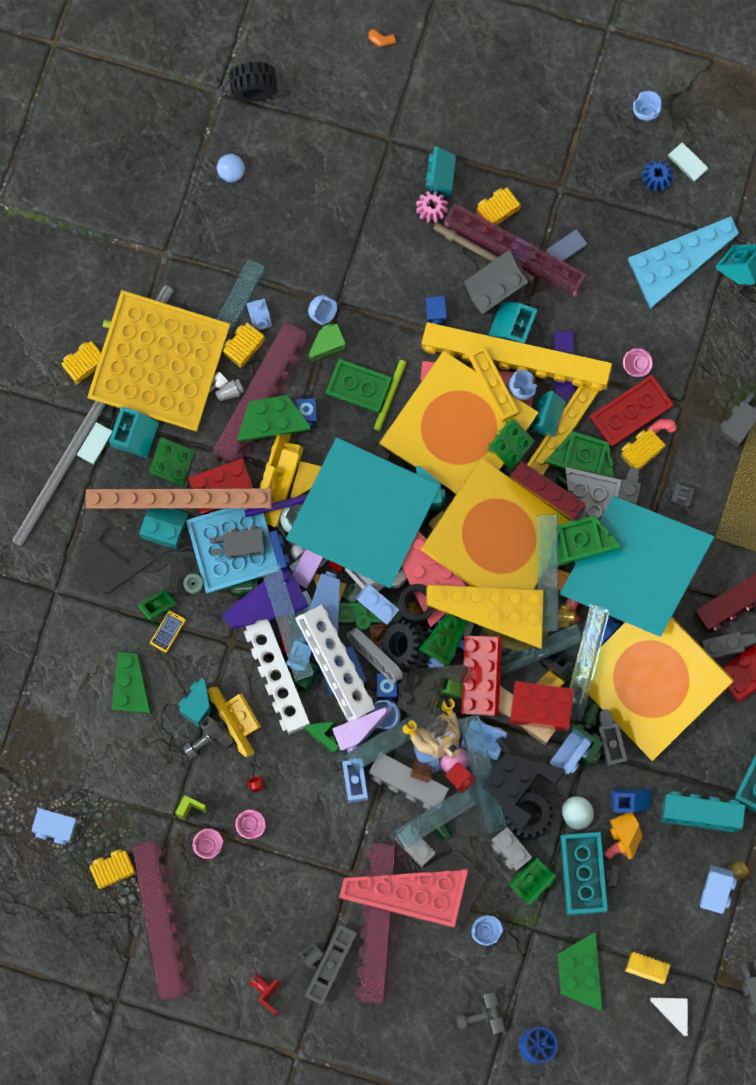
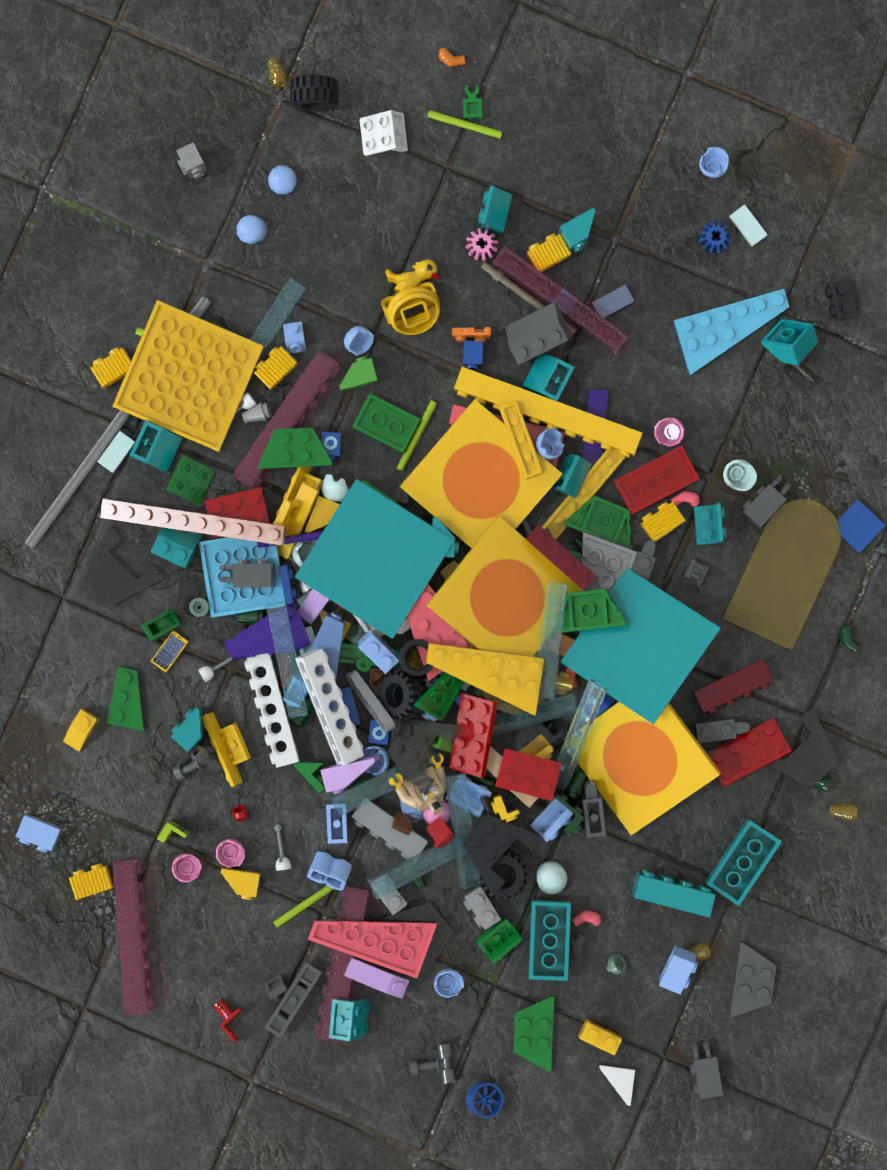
camera: 10 degrees right, 10 degrees up
(86, 718) = (81, 729): none -> yellow slope
(141, 158) = (191, 161): none -> light grey brick
(205, 217) = (251, 229): none -> light blue hair
(207, 647) = (207, 672): none -> white hinge
(214, 70) = (277, 76): none -> clear yellow cone
(267, 852) = (242, 881): none -> yellow slope
(304, 829) = (282, 862): none -> hinge
(314, 453) = (333, 489): none -> light aqua hair
(324, 113) = (383, 133): none -> white bracket
(333, 867) = (302, 906): none -> lime bar
(352, 830) = (329, 870): none -> light blue brick
(366, 248) = (423, 270): none -> yellow animal
(366, 261) = (395, 305): none -> yellow piece
(389, 976) = (349, 1019): none -> teal bracket
(401, 97) = (464, 124): none -> lime bar
(407, 80) = (472, 106): none -> green plate
(413, 931) = (377, 977): none -> lavender slope
(432, 290) = (463, 334): none -> orange wing
(492, 721) = (483, 781): none -> dark green arm
(511, 443) = (530, 503): green hinge -> none
(518, 747) = (498, 807): none -> yellow bracket
(522, 181) = (577, 230): none -> teal slope
(628, 833) = (598, 905): light orange slope -> none
(630, 799) = (604, 872): blue slope -> none
(654, 892) = (616, 964): none -> sand green tile
(689, 447) = (709, 524): none -> teal bracket
(712, 396) = (740, 475): none -> light aqua hair

